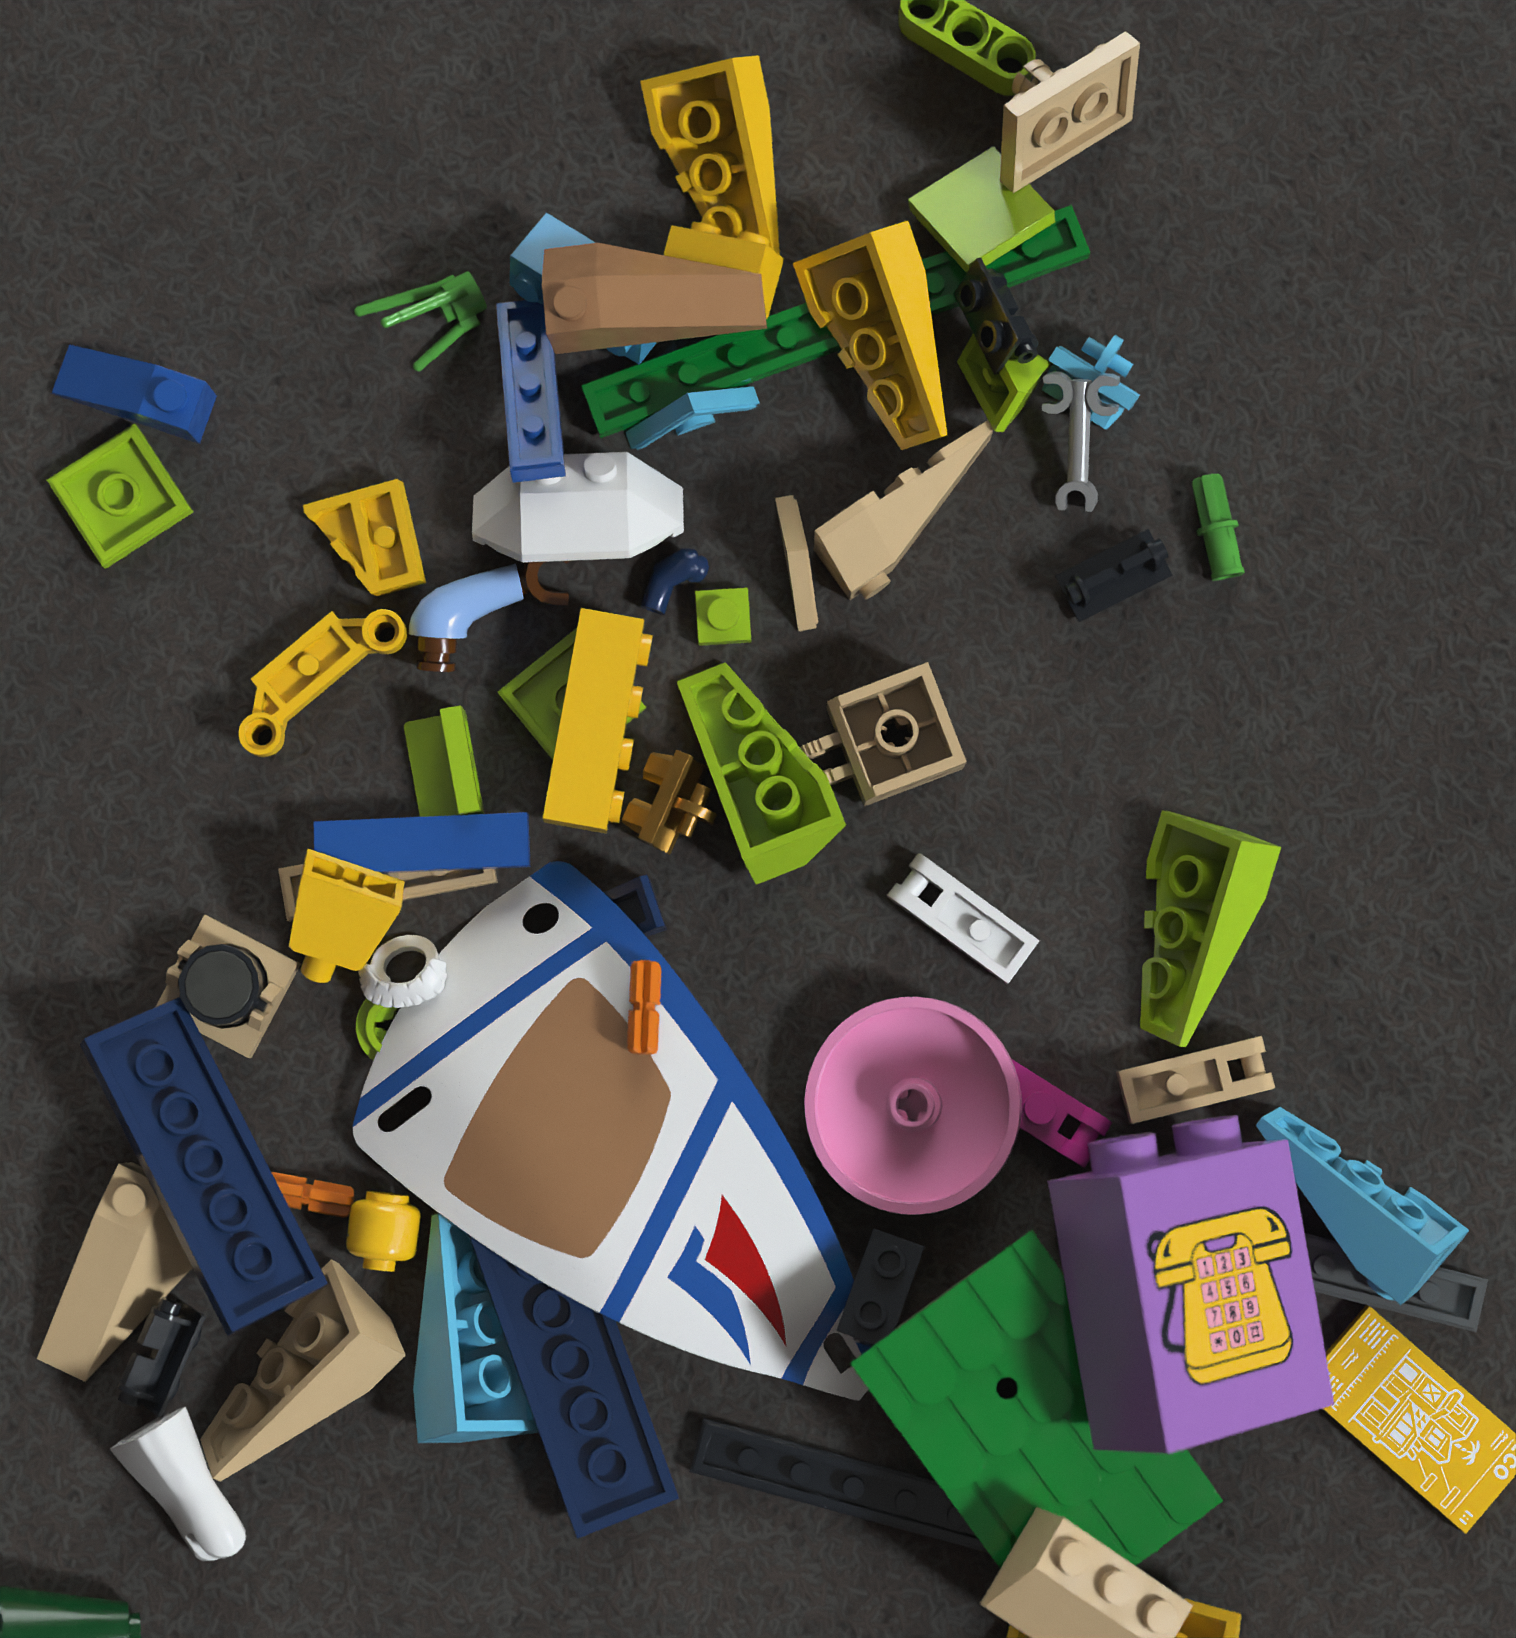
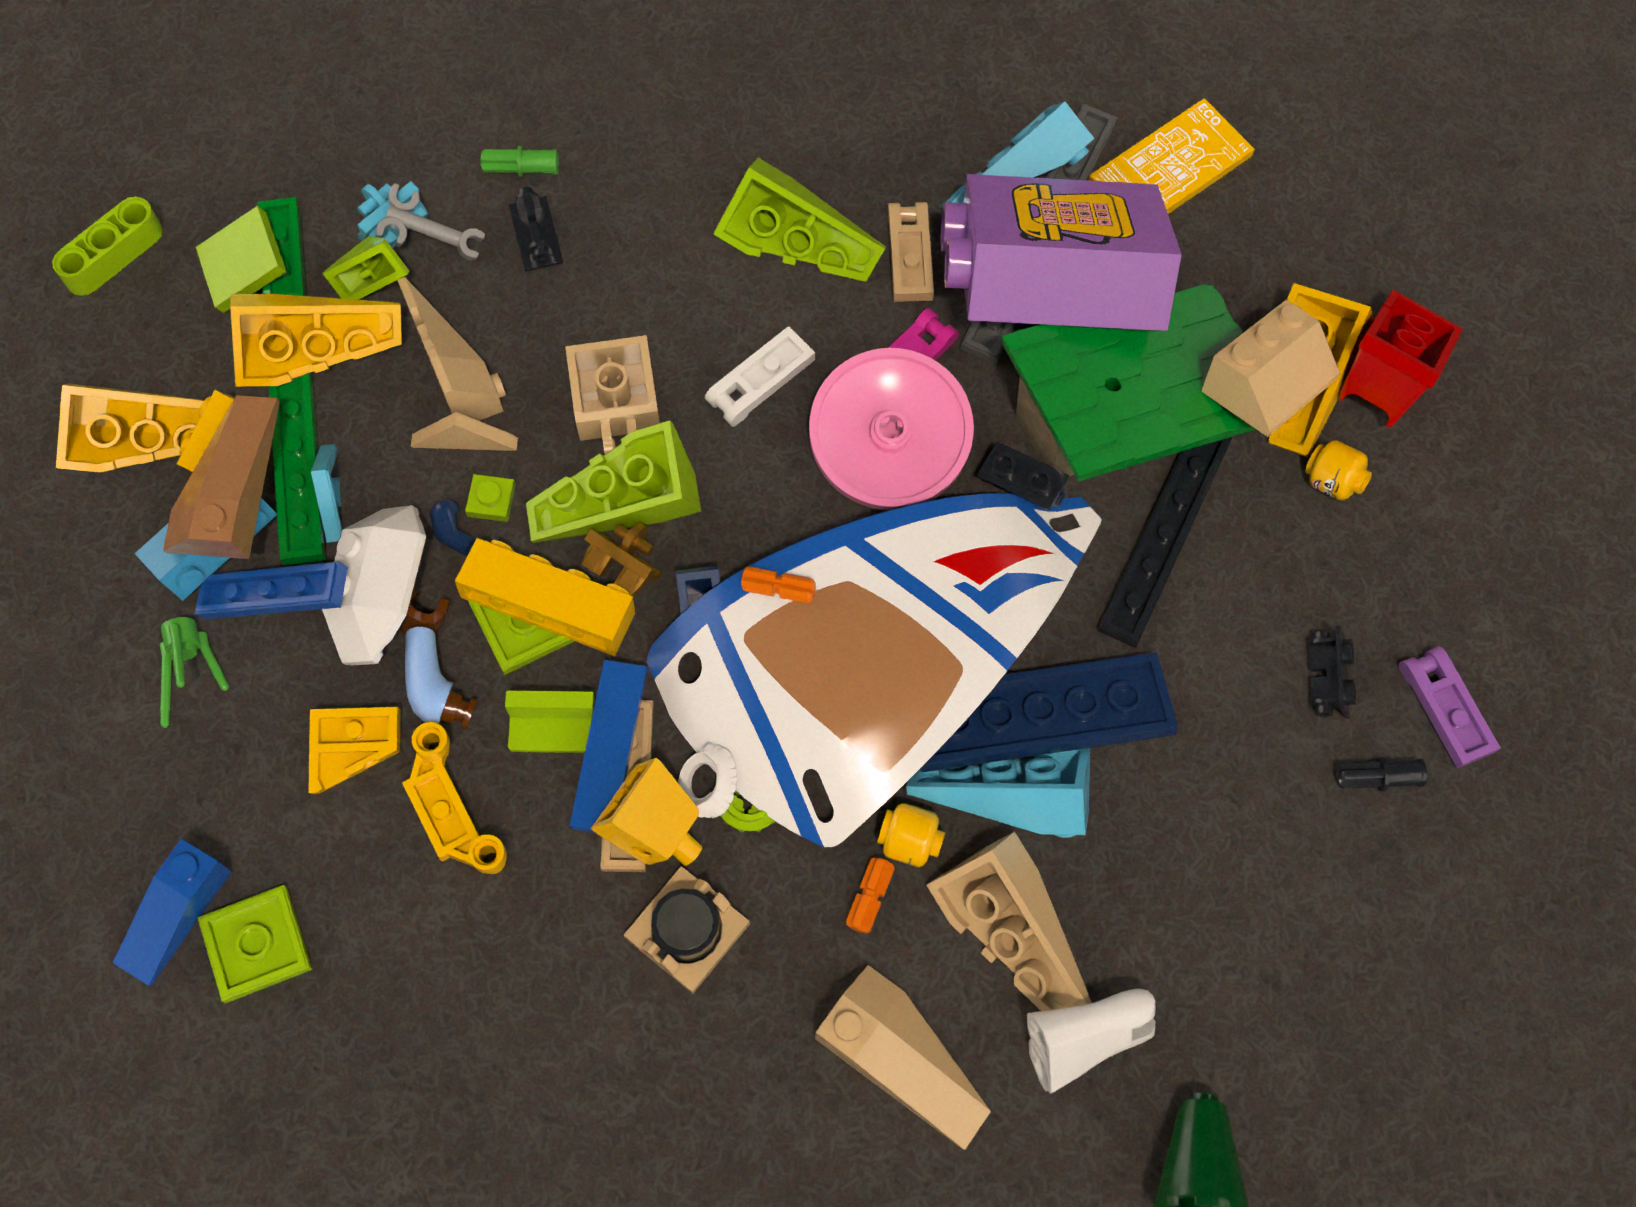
camera: 85 degrees left, 15 degrees down
(173, 1333) = (993, 1039): black hinge -> none
(203, 1165) = (829, 961): dark blue plate -> none
(988, 310) = (322, 257): black hinge -> none
(1066, 109) = (184, 181): tan plate -> none

